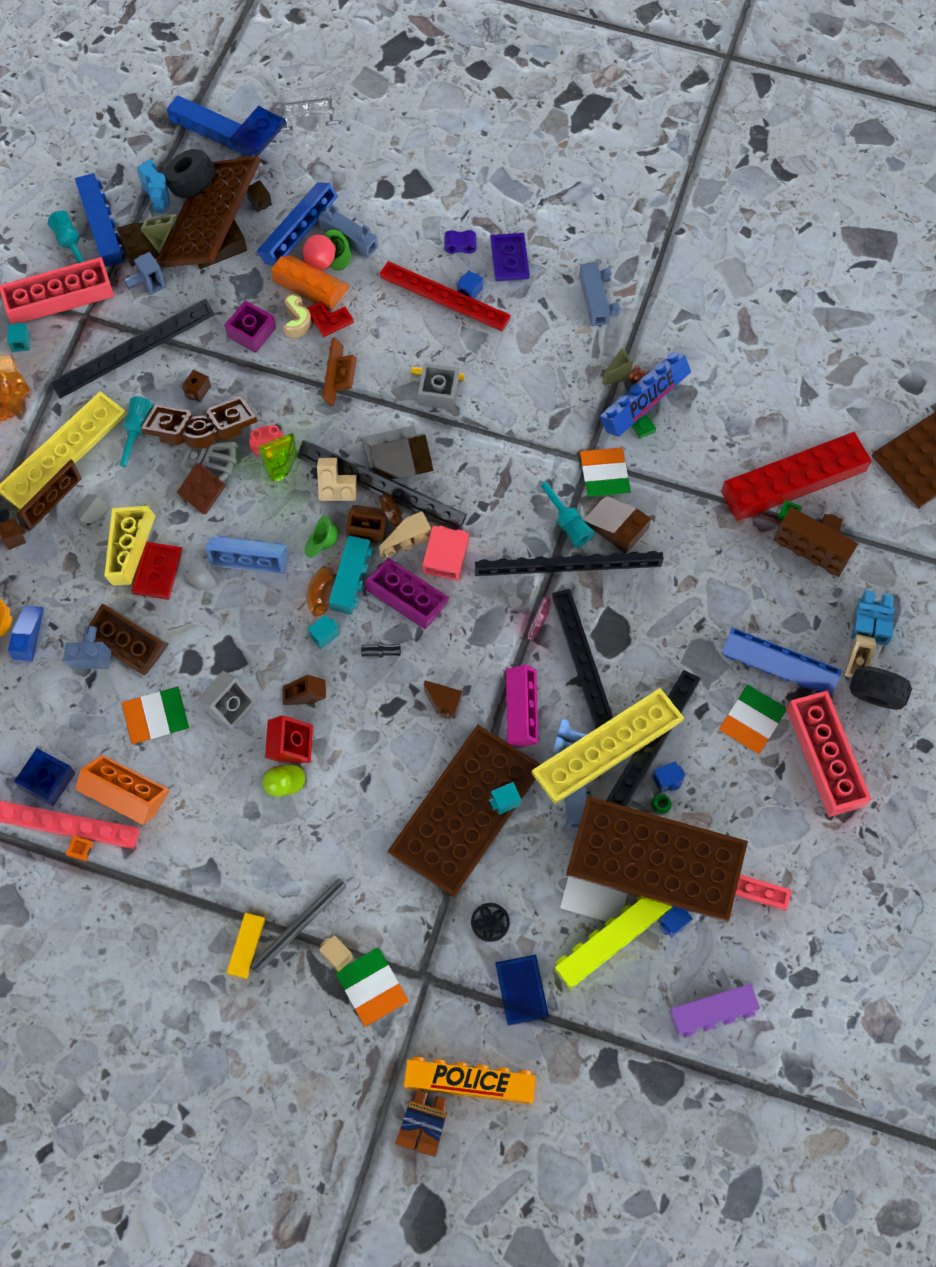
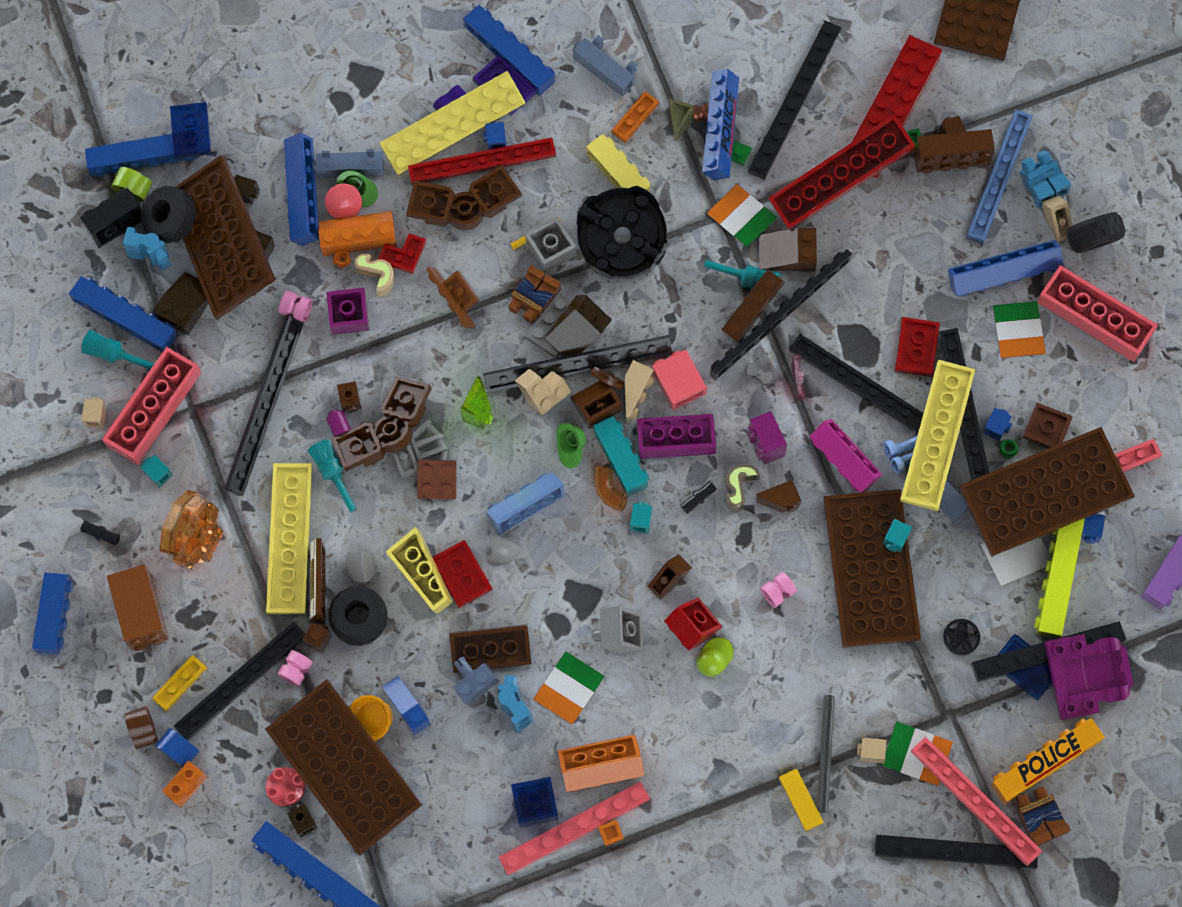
camera: 35 degrees left, 5 degrees up
(16, 268) = (94, 412): none -> tan brick
(52, 525) = (357, 597): none -> black tyre
(99, 686) = (508, 698): none -> dark azure hips
(144, 145) = (112, 217): none -> black brick
(147, 273) = (219, 331): sand blue brick -> none
(158, 229) = (191, 285): olive slope -> none
(171, 396) = (337, 422): none -> magenta brick
(186, 137) = (136, 183): none -> lime piece
(218, 297) = (295, 306): none -> bright pink wheel
(262, 436) = (449, 398): coral dish -> none
(280, 287) = (341, 254): none -> orange plate
(330, 1094) = (948, 851): none -> black plate
(376, 767) = (778, 589): none -> bright pink wheel
(380, 1066) = (976, 801): none -> coral plate
(386, 305) = (485, 198): none -> reddish brown plate
(394, 412) = (534, 294): none -> dark orange hips
(417, 660) = (733, 483): none -> dark tan animal
(446, 253) = (452, 122): none -> light yellow plate
(470, 644) = (767, 438): none -> magenta brick
(490, 393) = (619, 208): none -> black piece
(535, 235) = (504, 43): none -> blue brick
(539, 372) = (615, 164): none -> light yellow brick
(549, 538) = (753, 305): none -> reddish brown brick
(551, 992) = (1036, 654): none -> black plate
(566, 1037) = (1087, 674): none -> magenta piece
(587, 346) = (635, 117): none -> orange tile
(656, 668) = (917, 347): none -> red tile
(707, 490) = (842, 172): none -> red brick
(709, 810) = (1047, 426): none -> copper plate
(721, 419) = (794, 100): none -> black plate
(838, 591) = (999, 176): none -> medium blue tile

